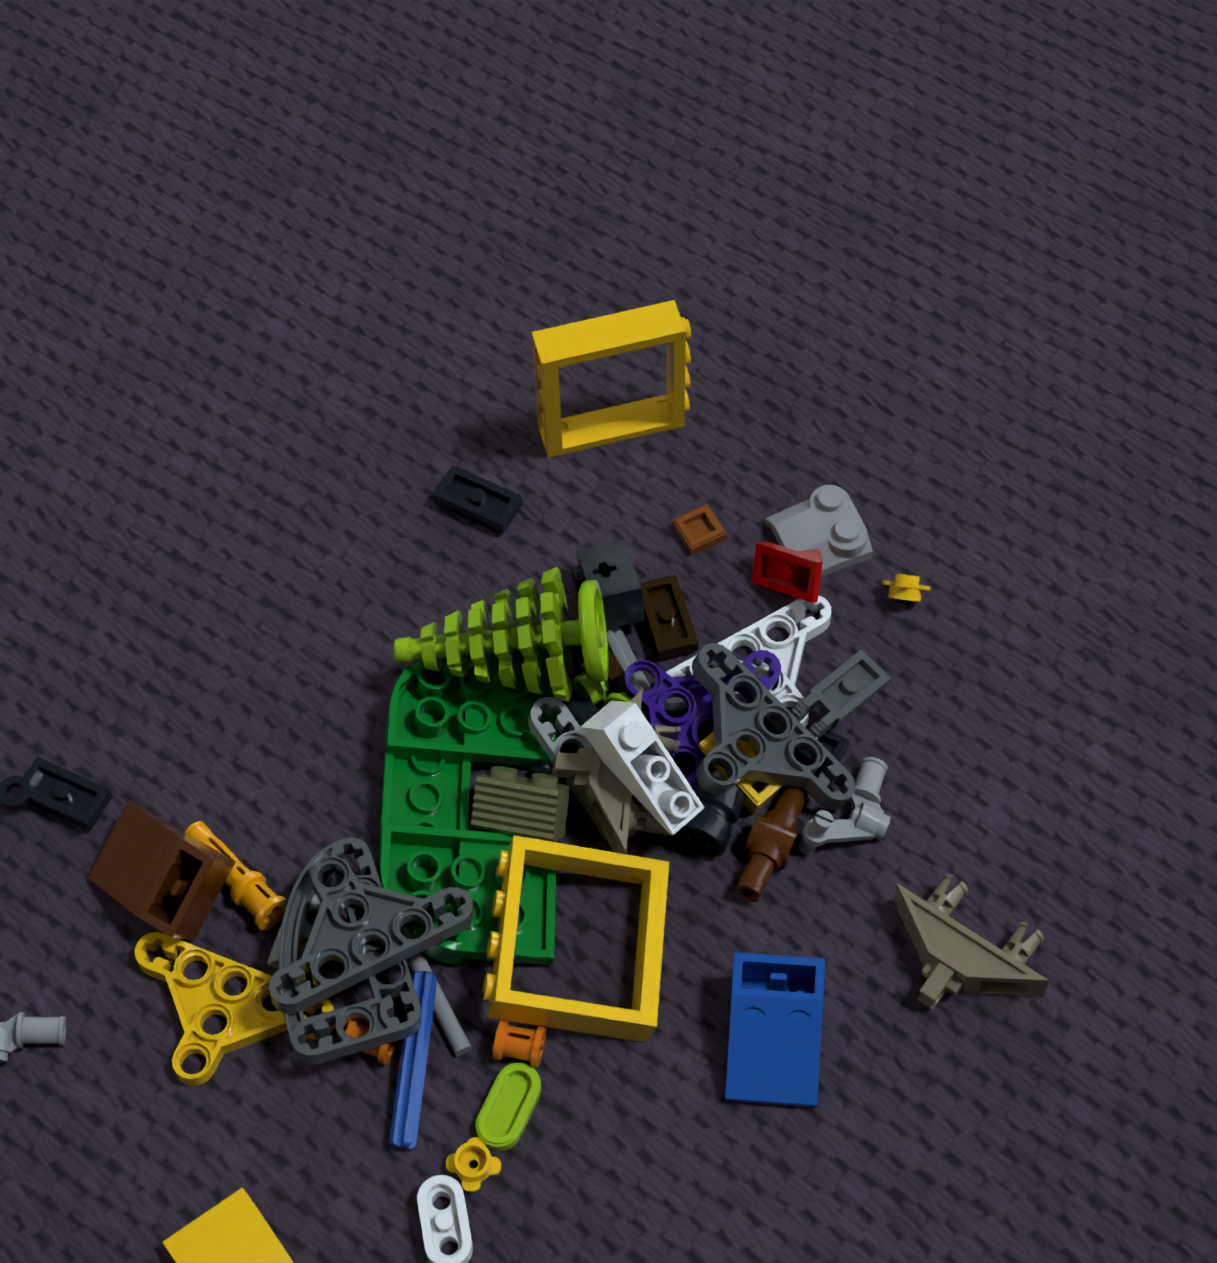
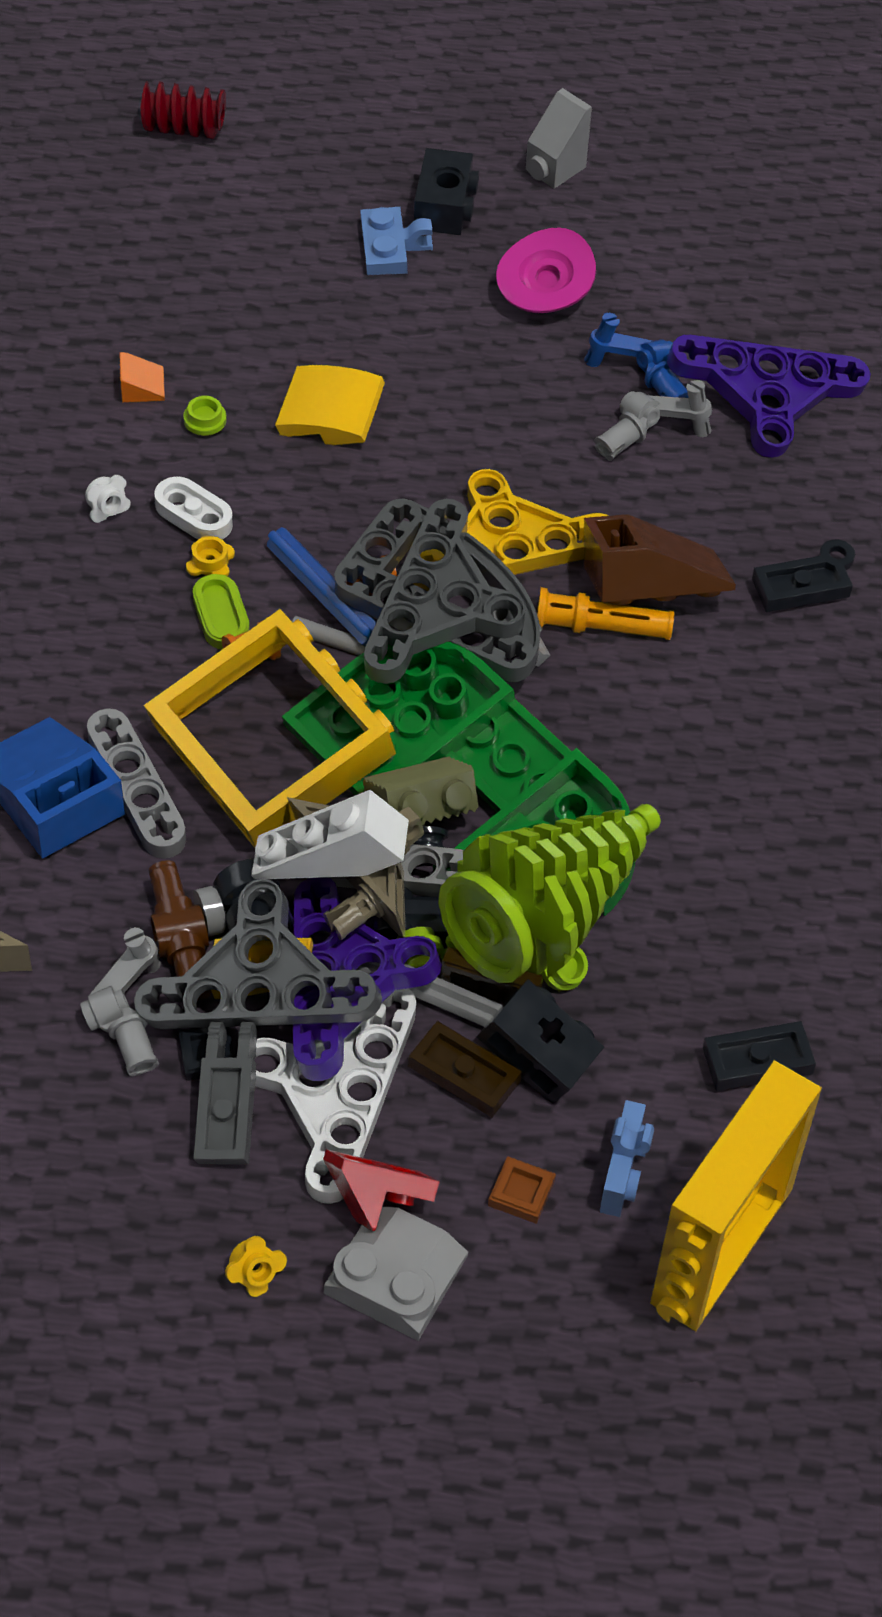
camera: 135 degrees right, 5 degrees down
(628, 492) = (628, 1140): none -> medium blue plate
(704, 992) = (138, 782): none -> light grey beam
(738, 838) = (212, 909): none -> light grey tile

